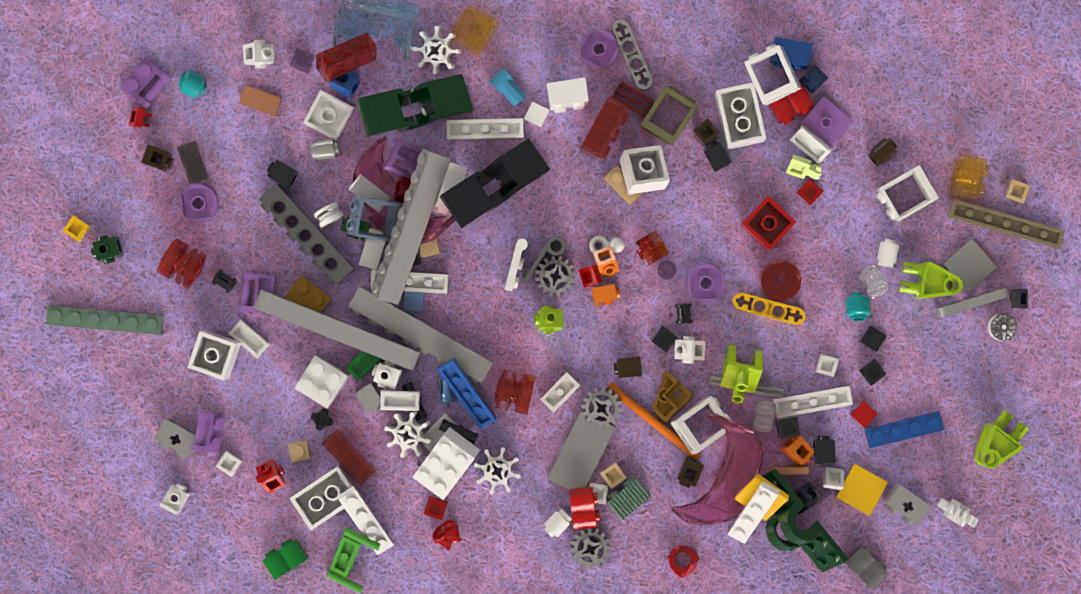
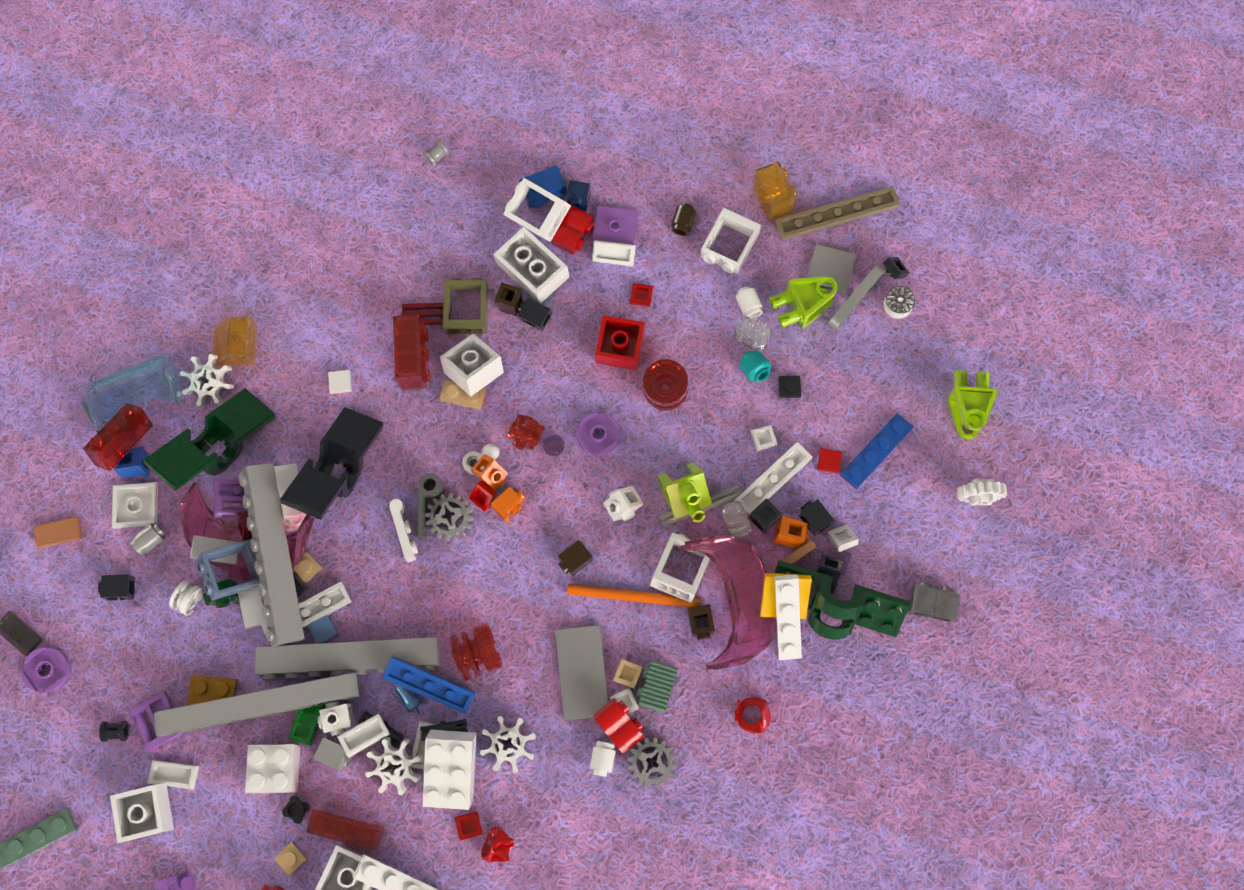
camera: 30 degrees left, 15 degrees down
(179, 262) = (56, 739): clear red wheel -> none
(258, 54) = (29, 488): white brick -> none
(276, 195) = (121, 614): dark grey brick -> none
(302, 60) = (79, 469): clear purple plate -> none
(485, 129) = (297, 424): white plate -> none
(505, 84) = (293, 372): dark azure piece -> none
(549, 319) = (468, 561): lime brick -> none
(560, 392) = (523, 626): white plate -> none
(567, 95) = (356, 342): white brick -> none
(596, 38) = (366, 300): medium lavender plate -> none
(609, 401) = (570, 623): light grey gear -> none
(634, 54) = (398, 276): light grey beam -> none
(664, 339) = (592, 510): black plate -> none
(665, 404) = (635, 572): pearl gold slope -> none
(686, 317) = (589, 471): black bush -> none
(768, 310) = (672, 417): yellow beam -> none
(801, 167) = (617, 276): yellowish green plate -> none
(862, 489) = (877, 532): yellow tile -> none
(872, 372) = (810, 417): black plate -> none
(917, 510) = (939, 511): light grey brick -> none
(1017, 191) = (827, 180): tan plate -> none

